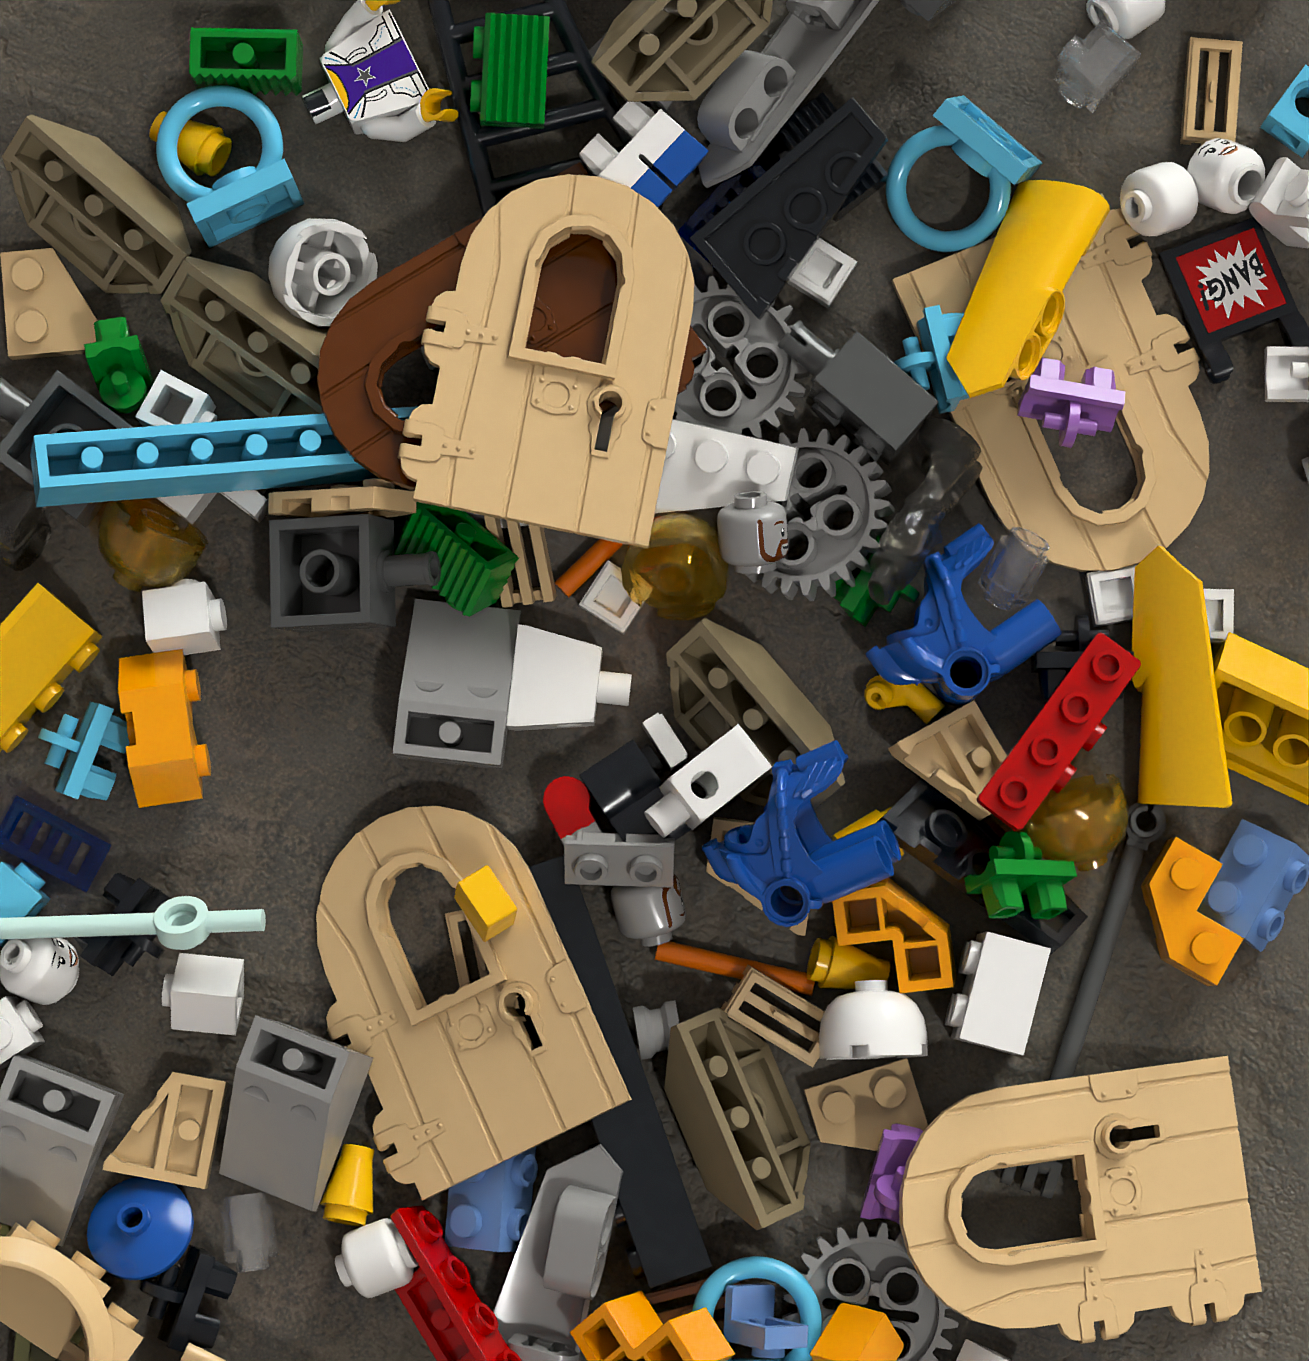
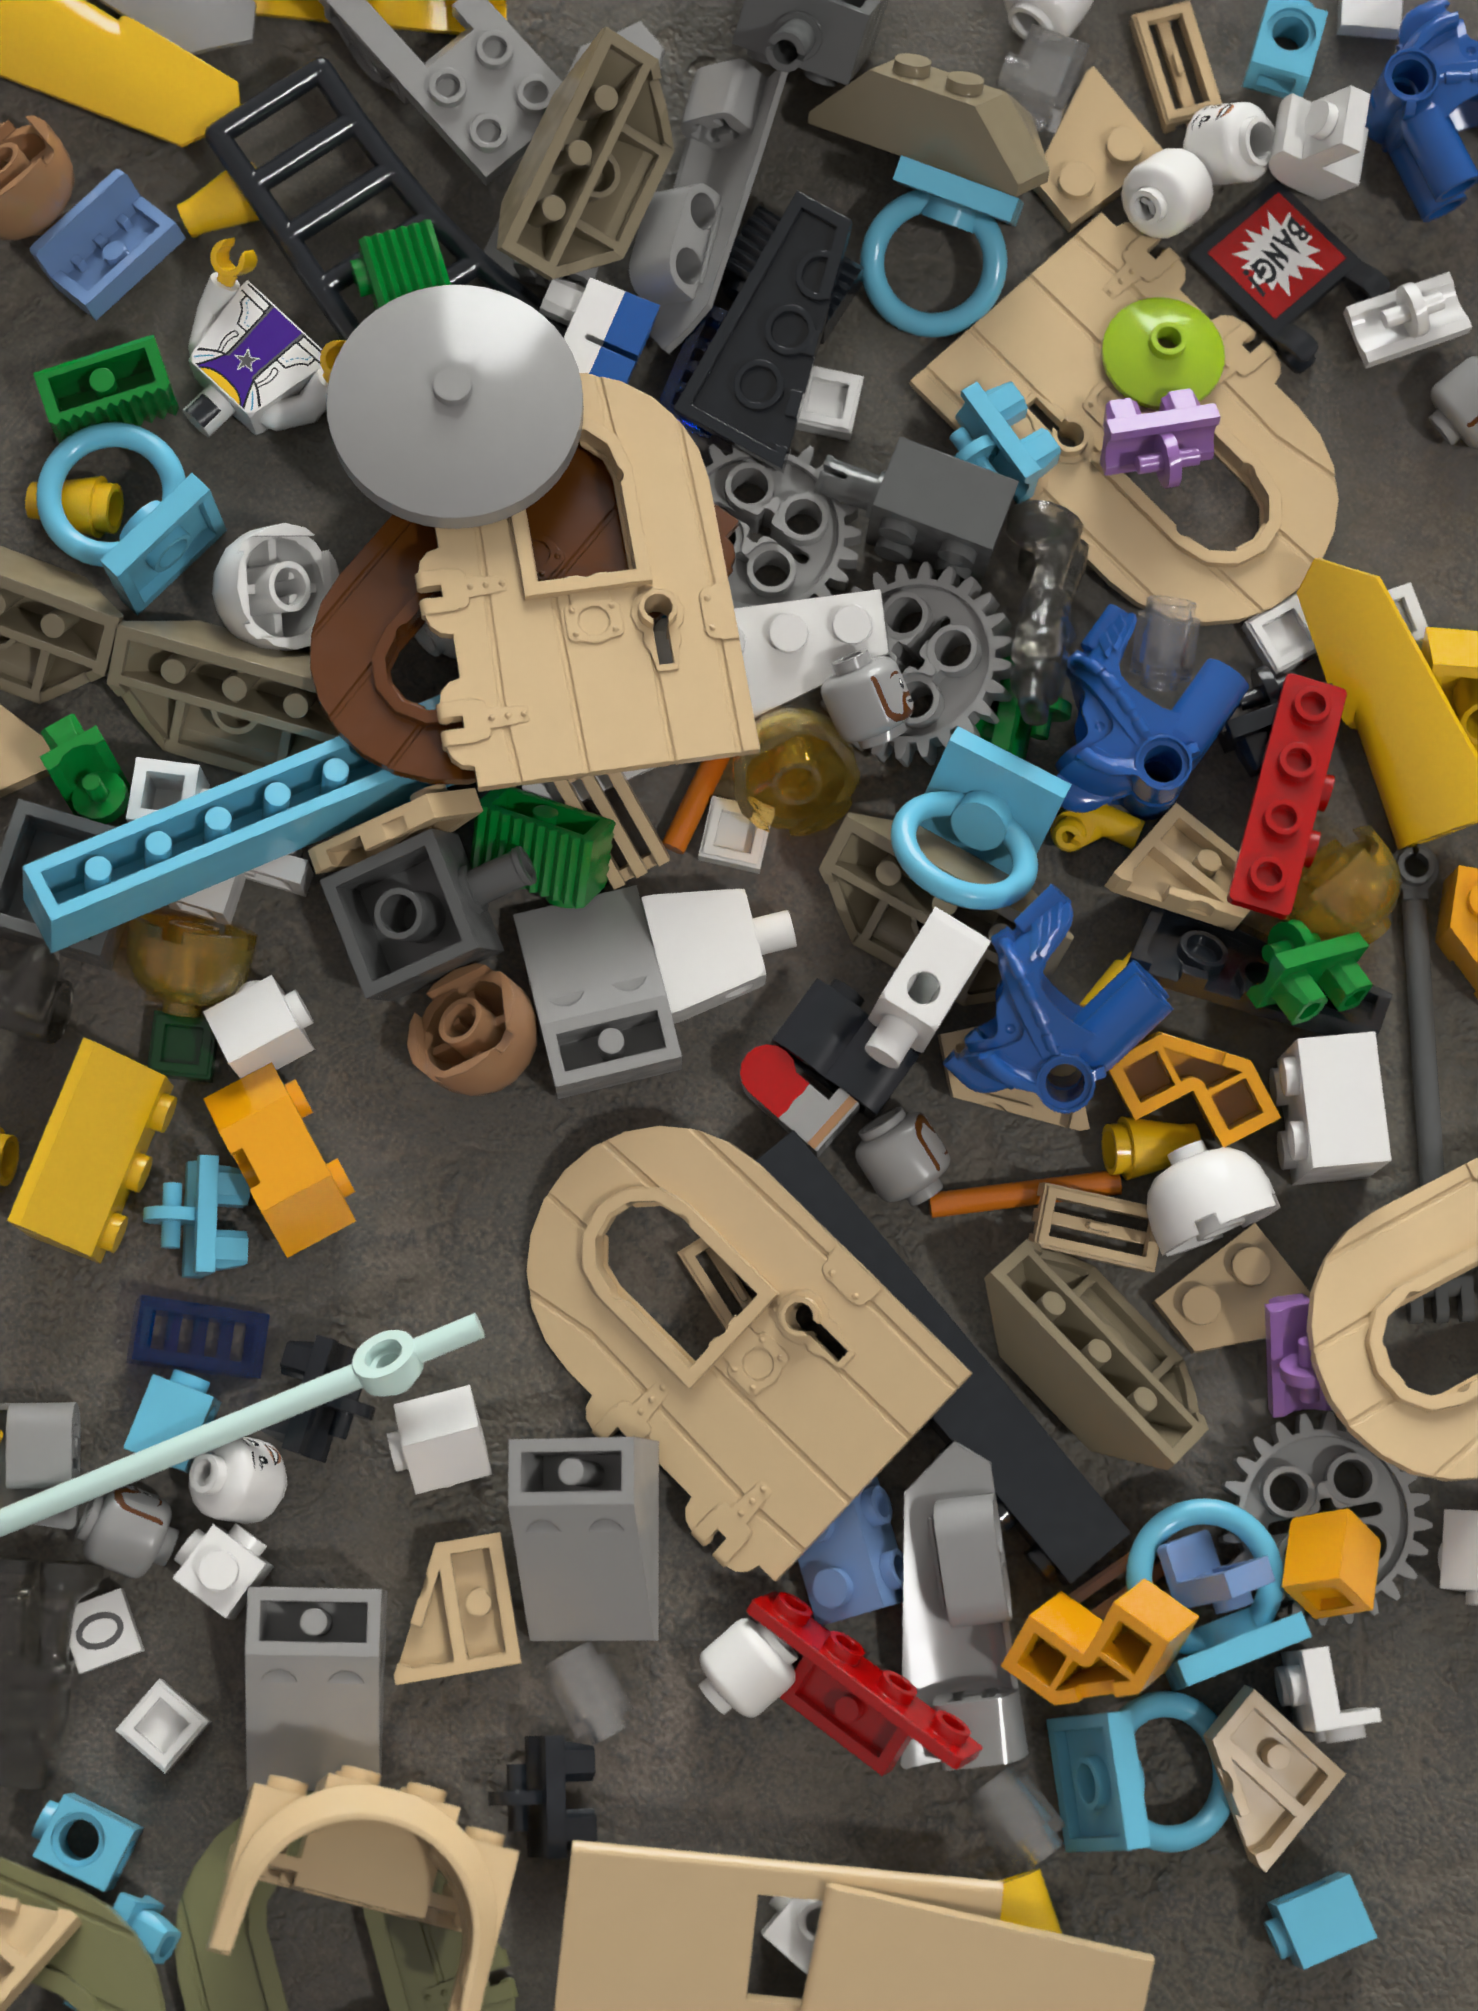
camera: 25 degrees left, 5 degrees down
(117, 610) = (182, 1047): none -> dark green tile
(154, 1242) = (484, 1748): blue dish -> none
(347, 683) = (474, 1032): none -> medium nougat cylinder
(350, 1189) = (686, 1601): yellow cone -> none
(485, 903) = (725, 1213): yellow piece -> none
(510, 179) = (455, 406): none -> light grey dish
(638, 862) = (857, 1116): light grey hinge -> none
(654, 1027) = (963, 1291): light grey wheel -> none
(665, 741) = (853, 969): white tile -> none
(818, 652) = (987, 807): none -> medium azure tile
(994, 82) = (941, 122): none -> dark tan wedge
(1022, 283) = (1058, 326): yellow panel -> none
(1086, 343) = (1146, 369): none -> lime dish
(1114, 139) = (1092, 152): none -> tan wing

